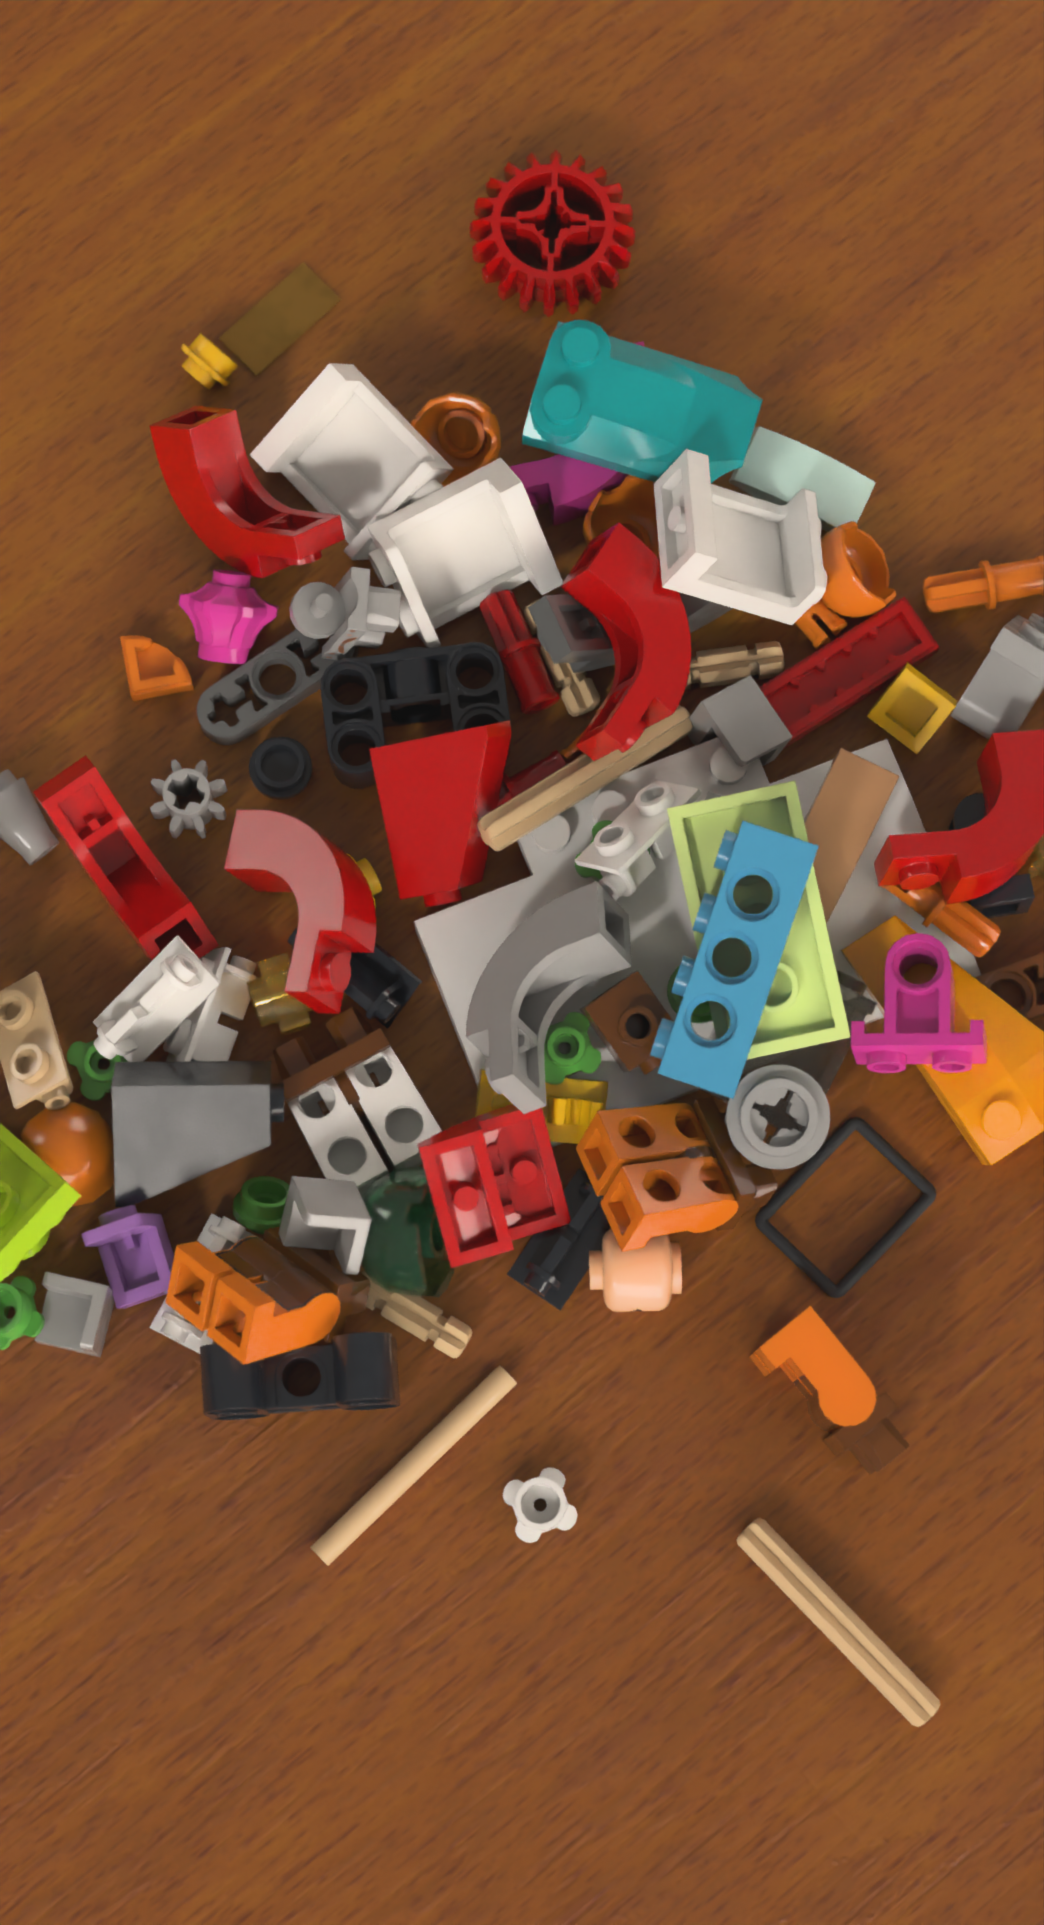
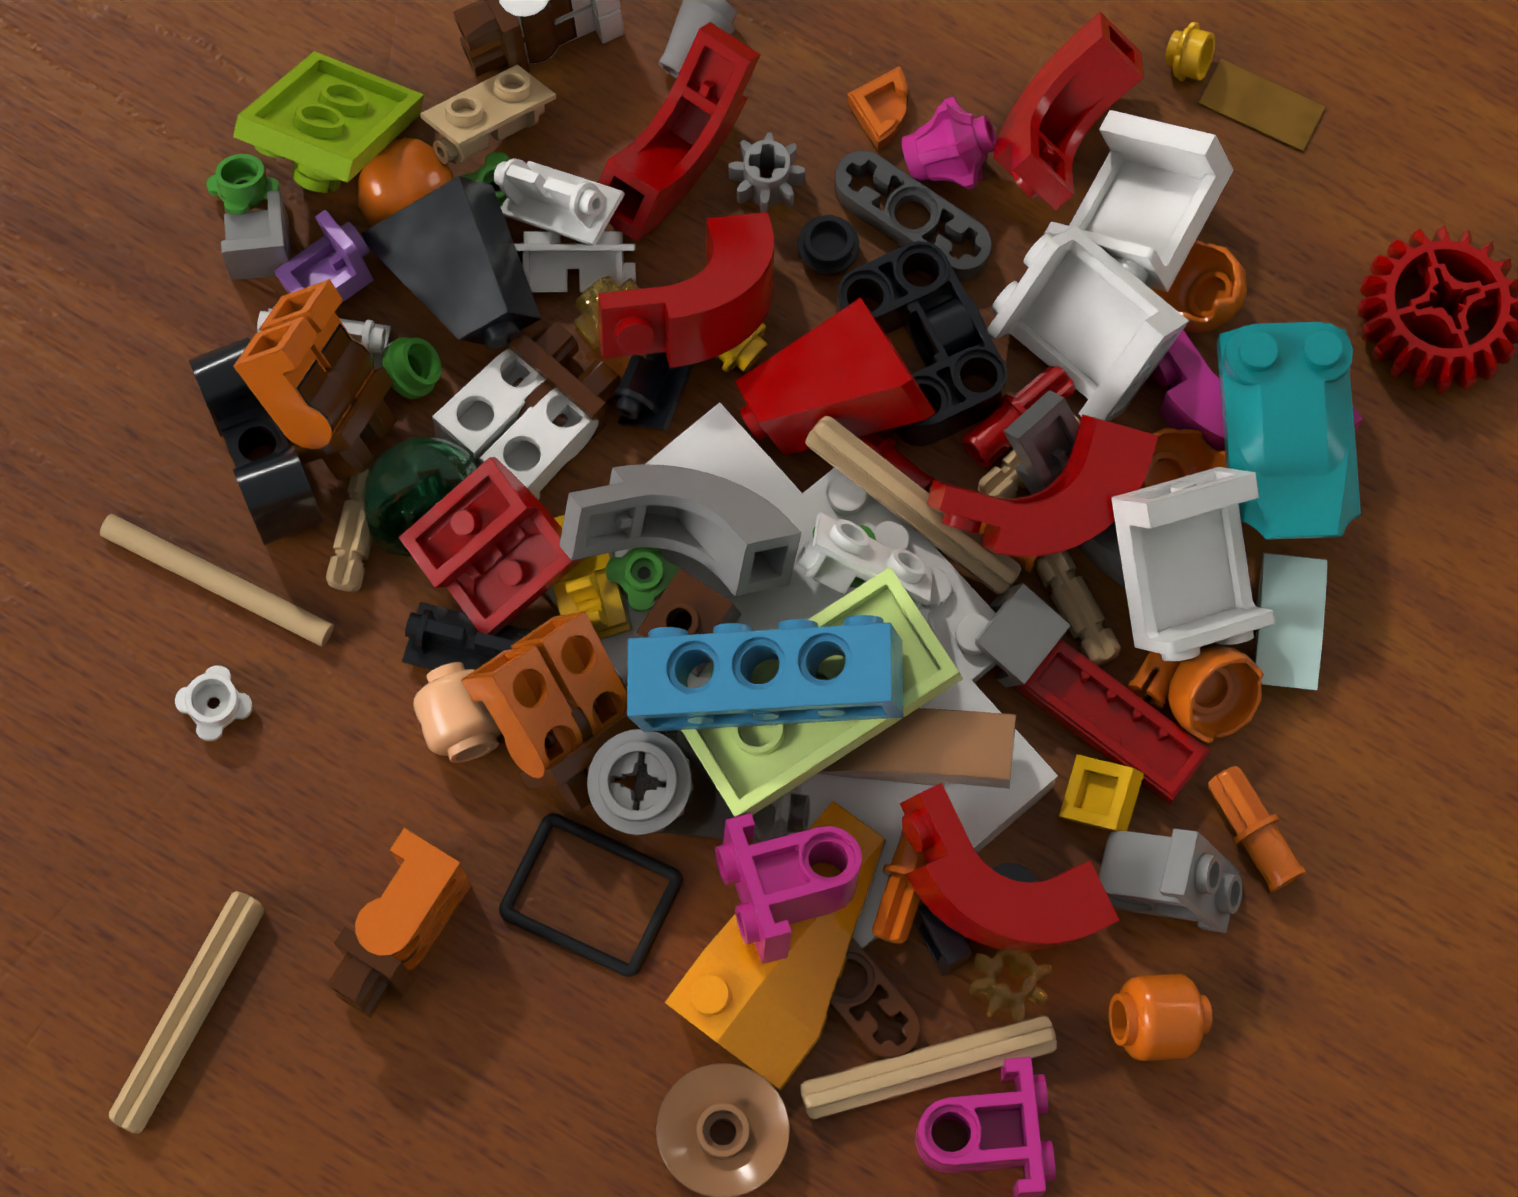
camera: 70 degrees right, 5 degrees down
(326, 1217) = (407, 407): light grey panel -> none
(347, 613) = (981, 234): light grey hips -> none

